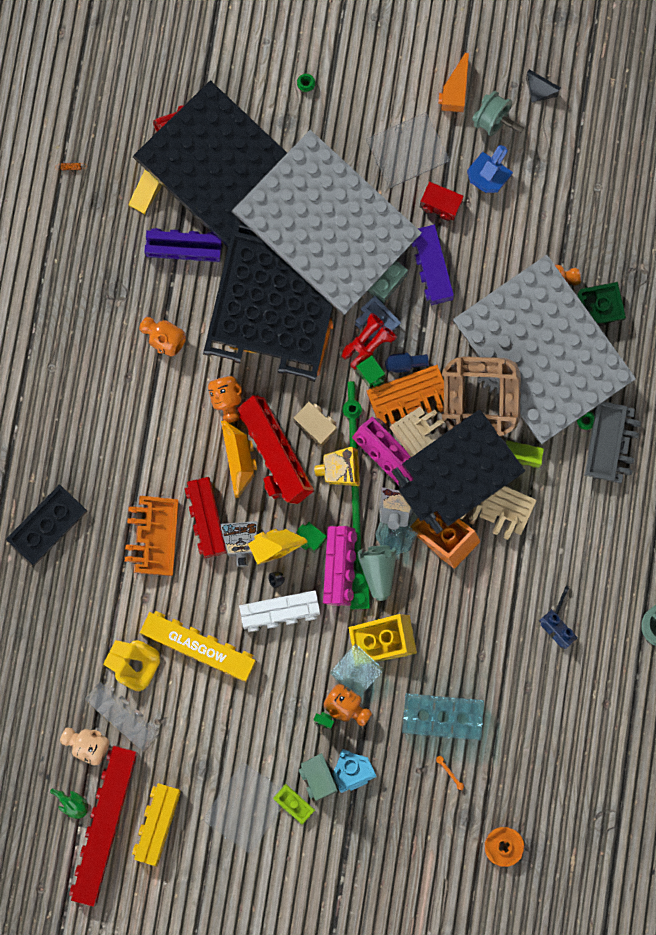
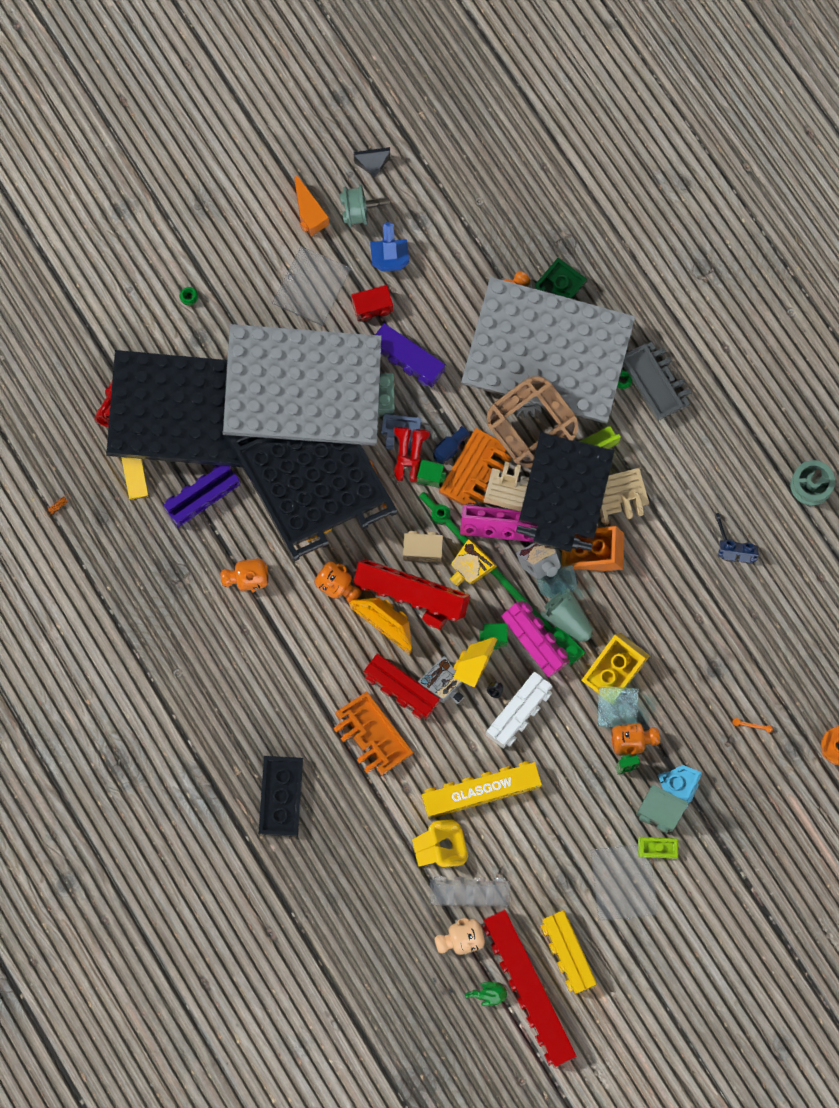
camera: 45 degrees left, 5 degrees down
(452, 707) = (713, 673): clear light blue brick -> none

